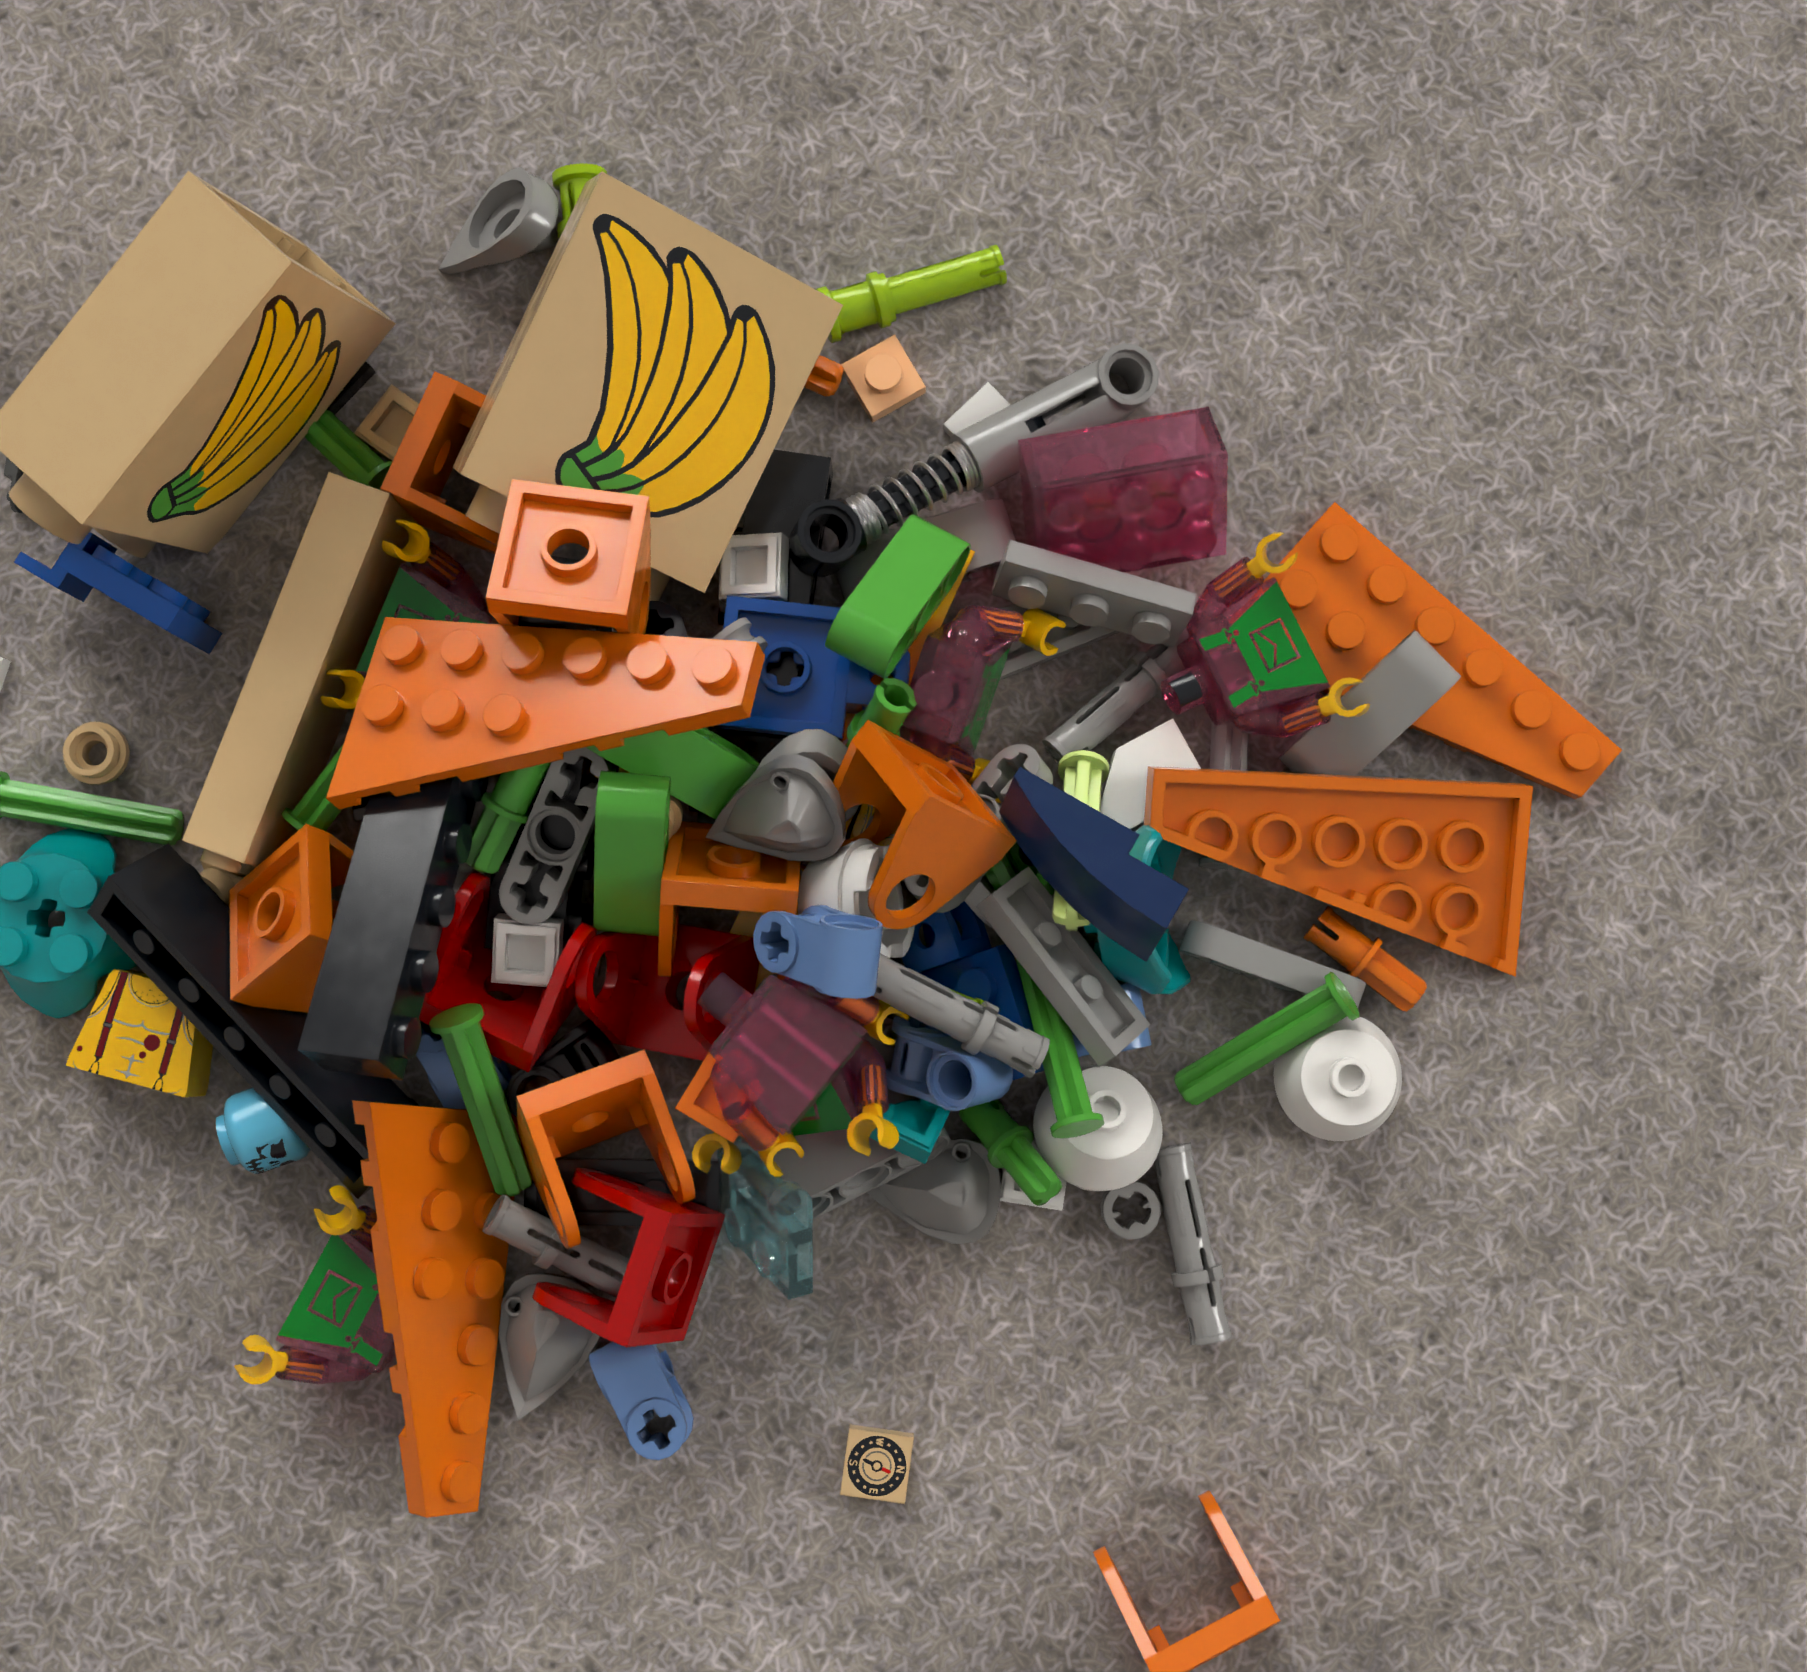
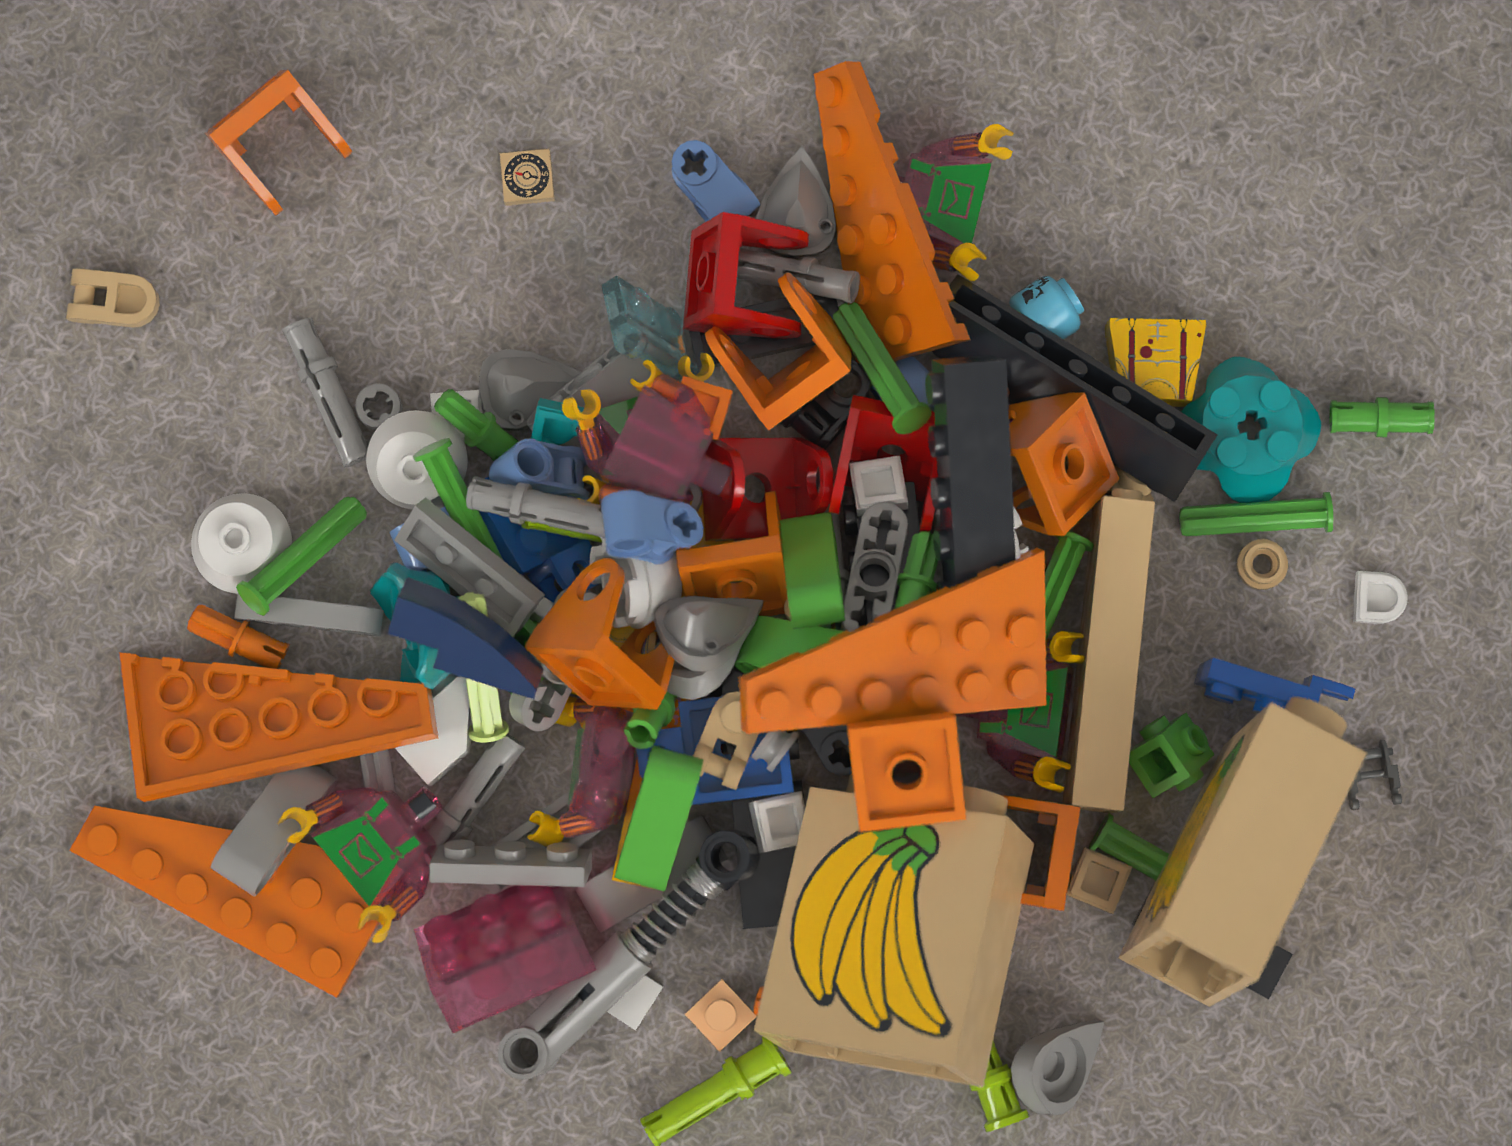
camera: 165 degrees right, 0 degrees up
(261, 543) = (1170, 754): none -> bright green brick
(782, 692) = (725, 725): none -> tan plate
(1420, 1423) = (128, 303): none -> tan plate

